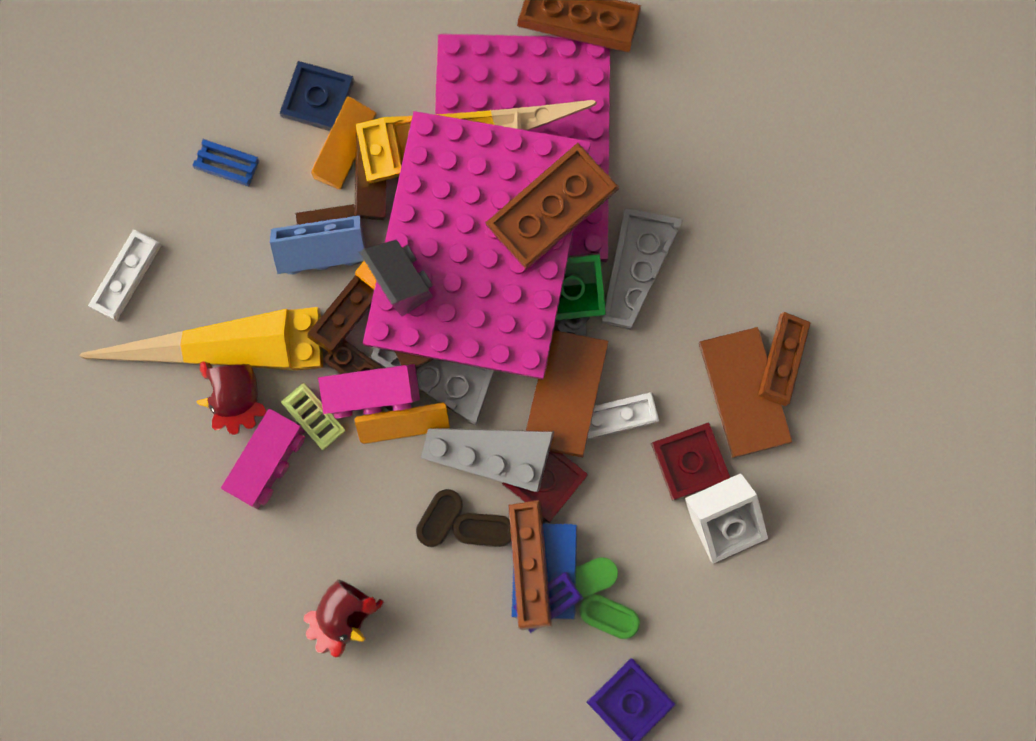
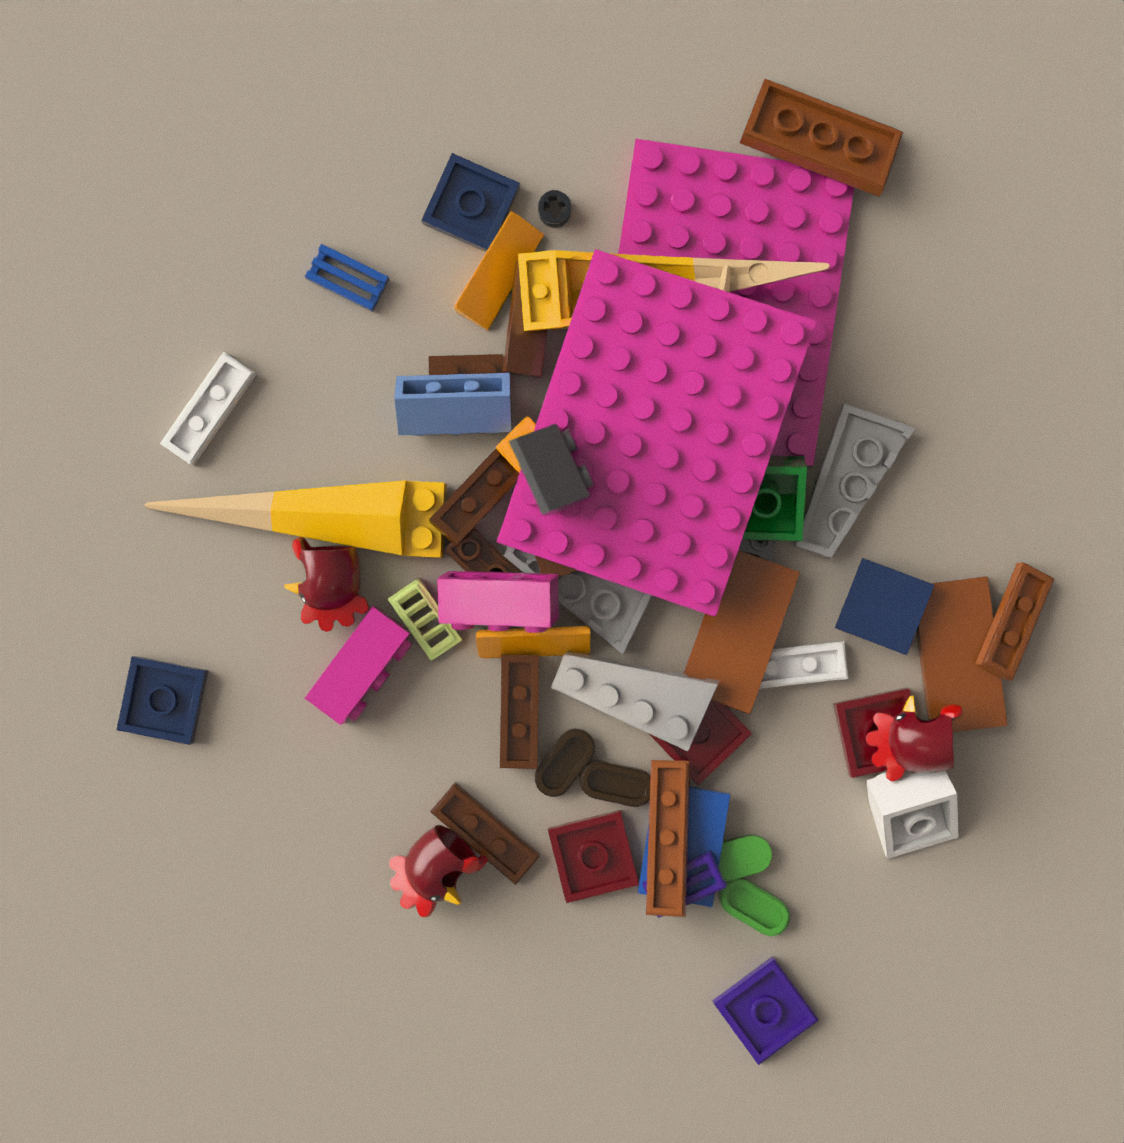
camera: 10 degrees right, 10 degrees up
(105, 509) = (162, 700): none -> dark blue tile
(380, 584) = (485, 833): none -> reddish brown tile
(388, 86) = (546, 216): none -> black bush
(397, 480) = (519, 711): none -> reddish brown plate
(471, 592) = (593, 856): none -> dark red tile
(552, 206) = (757, 401): dark orange tile -> none
(679, 359) = (884, 606): none -> dark blue tile
(717, 461) = (914, 743): none -> dark red piece

